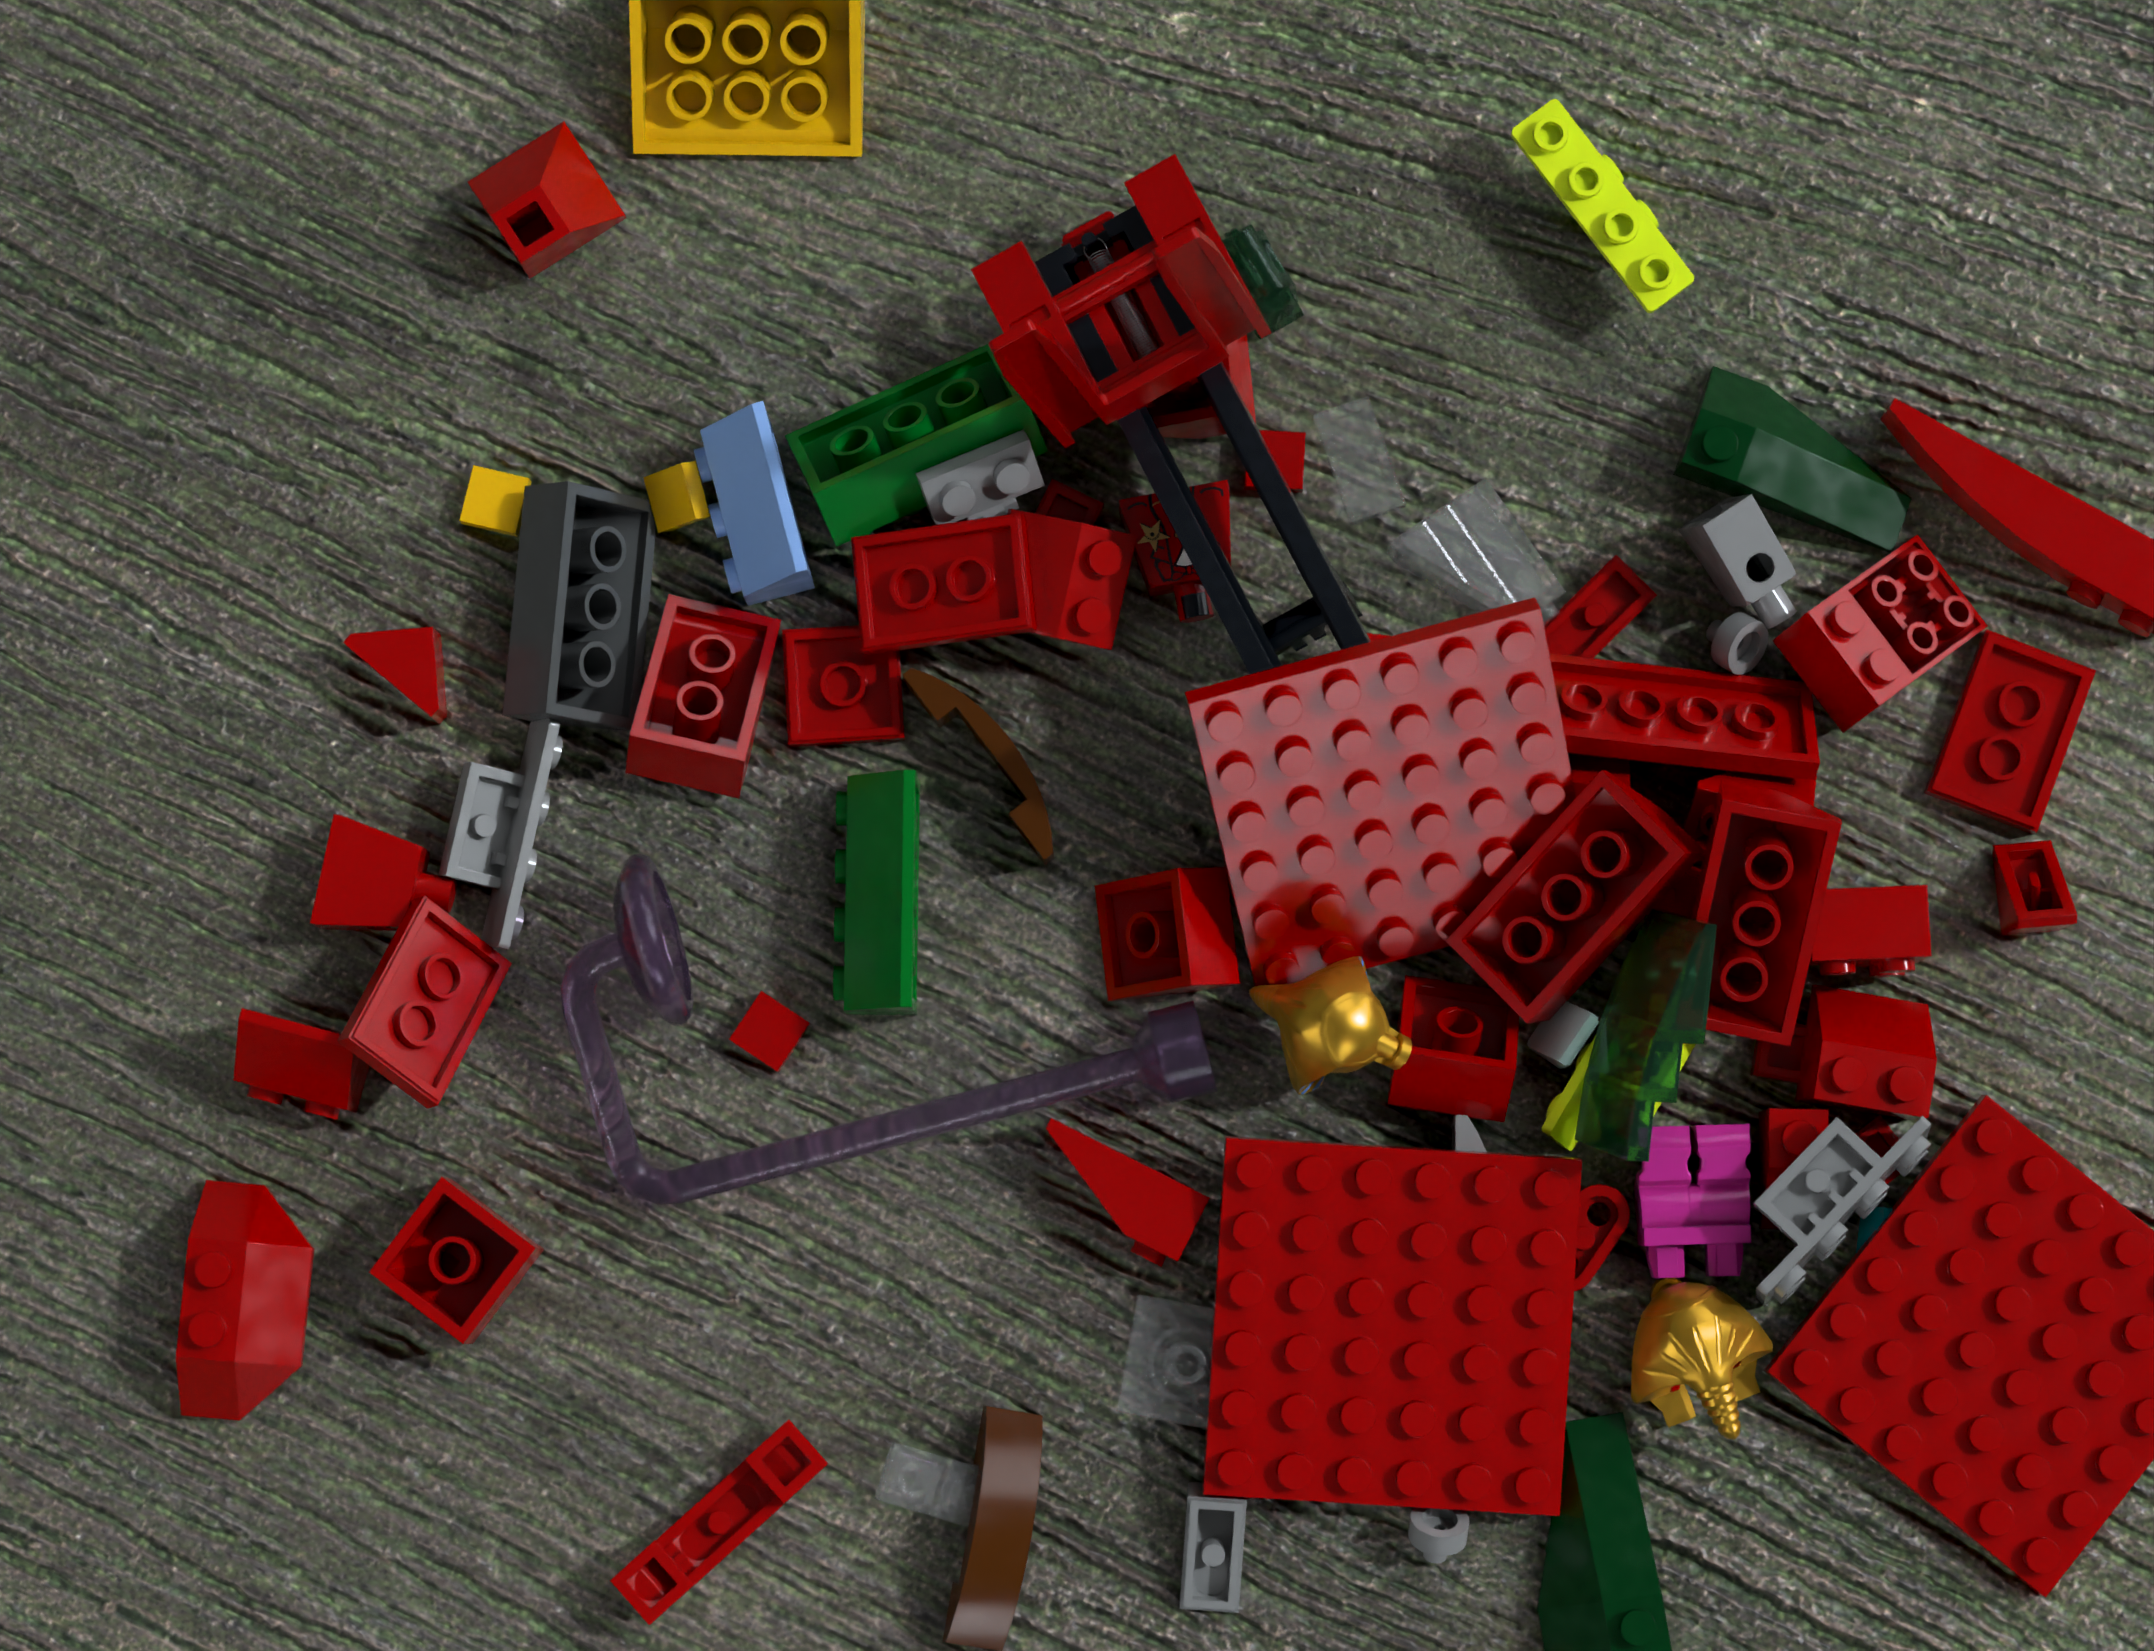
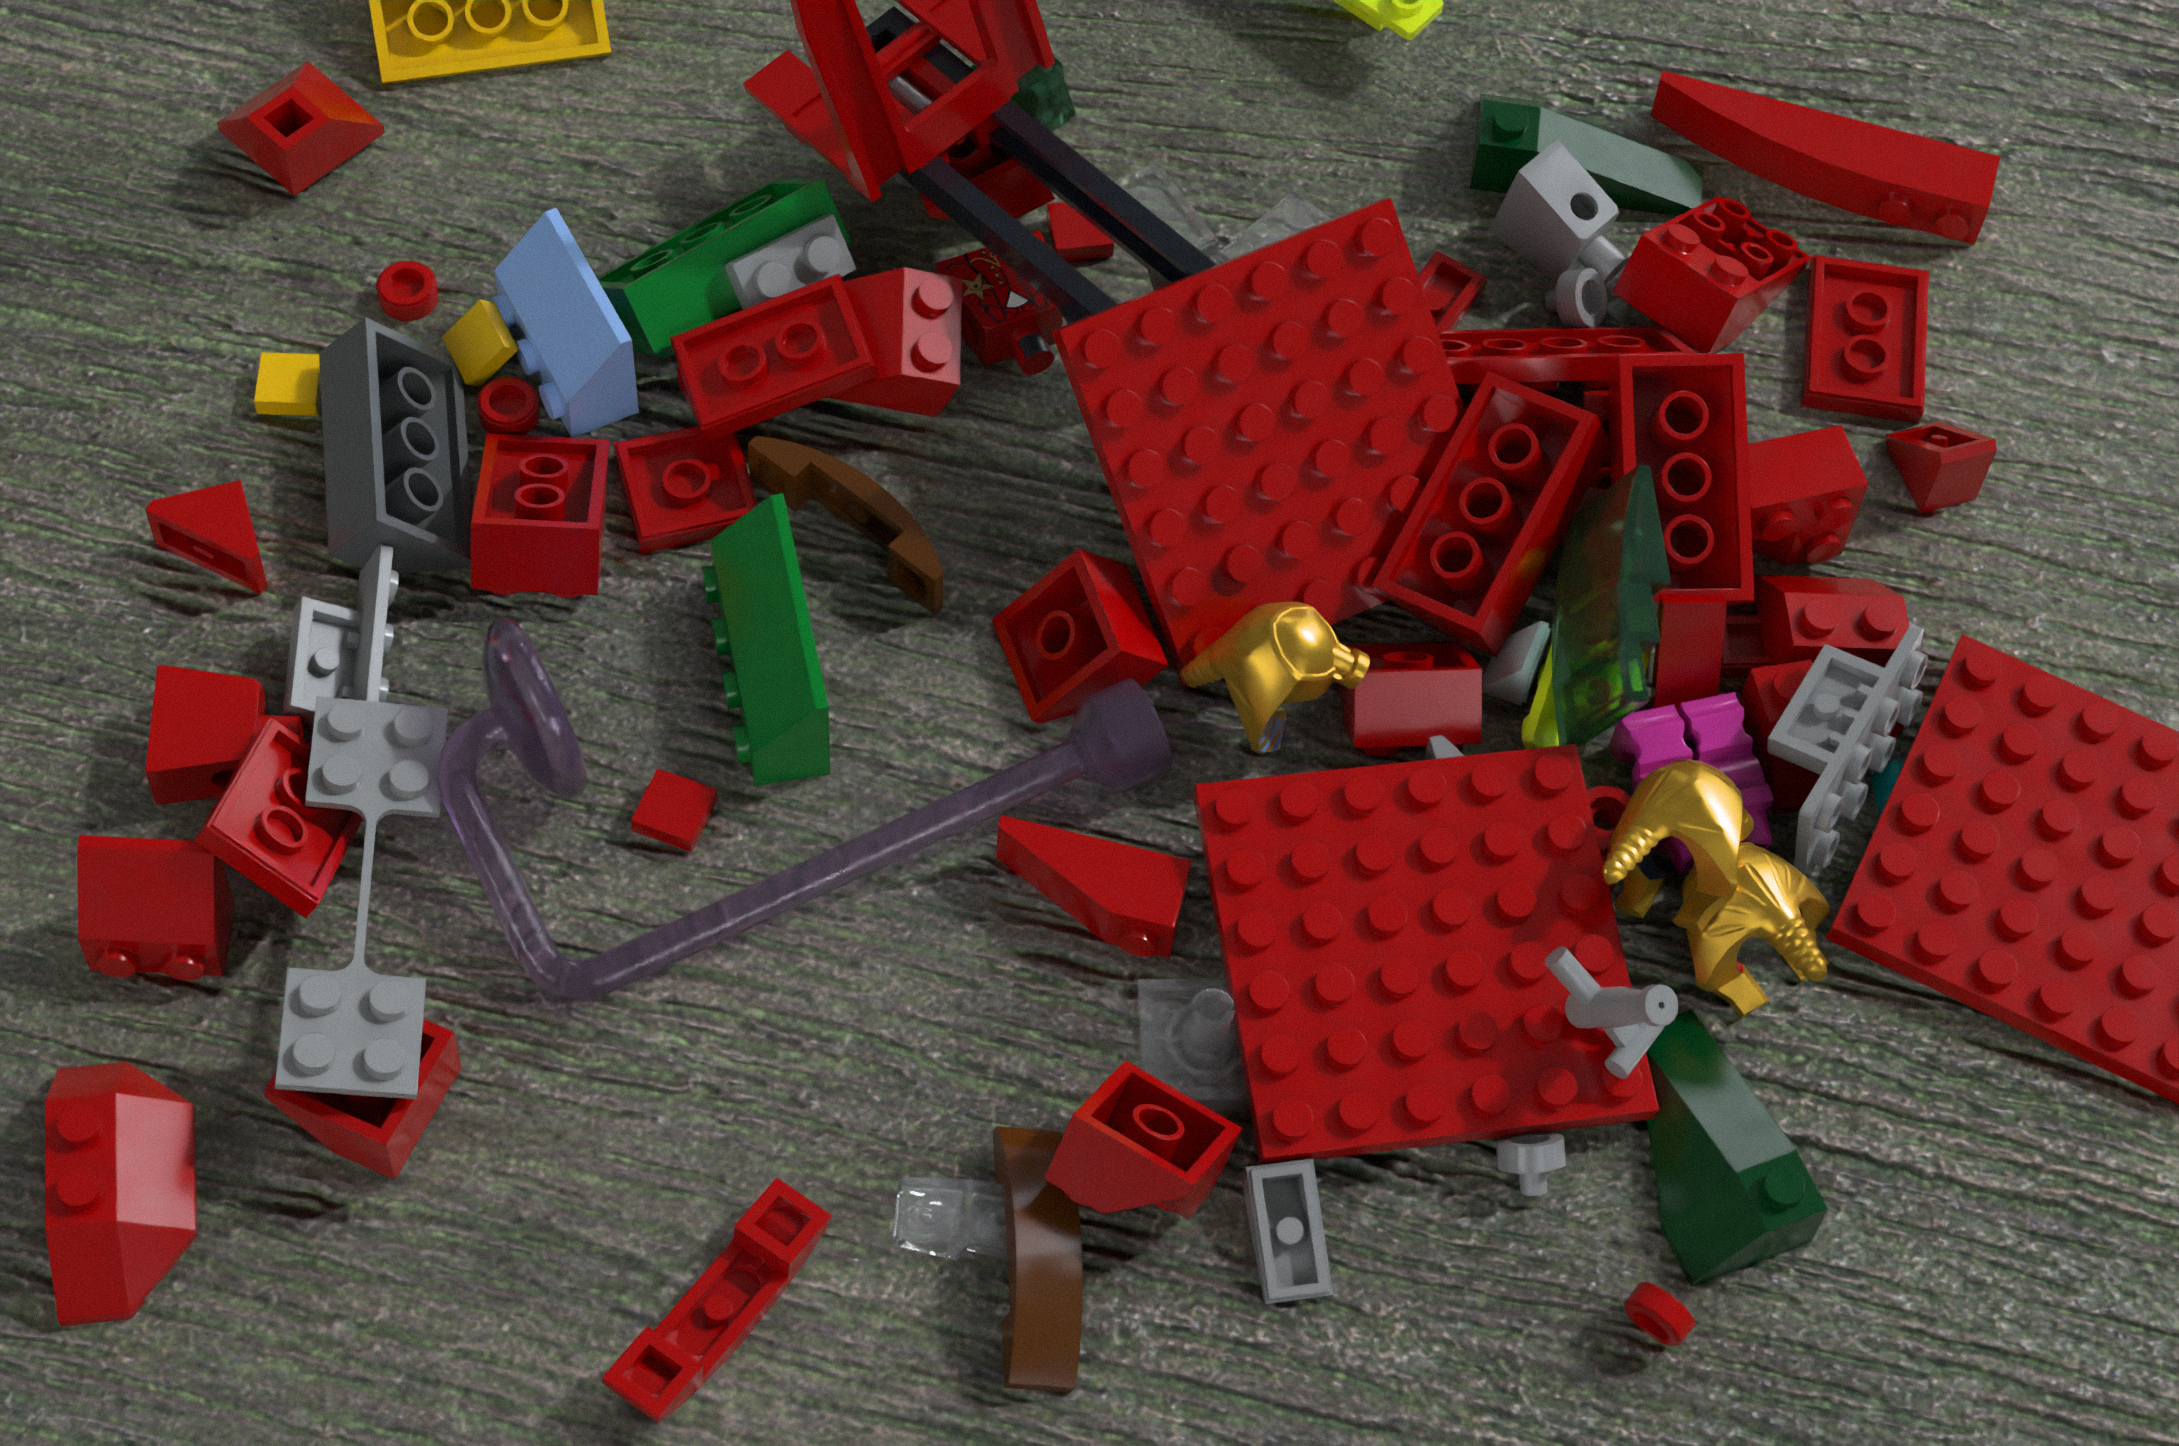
camera: 20 degrees left, 25 degrees down
(449, 1231) = (351, 1025): none -> light grey hinge
(620, 411) = (407, 290): none -> red tile
(693, 565) = (508, 406): none -> red tile
(1100, 1471) = (1141, 1147): none -> red slope
(1548, 1462) = (1626, 1014): none -> light grey piece
(1658, 1270) = (1705, 814): none -> pearl gold piece
(1718, 1075) = (1689, 650): none -> red tile

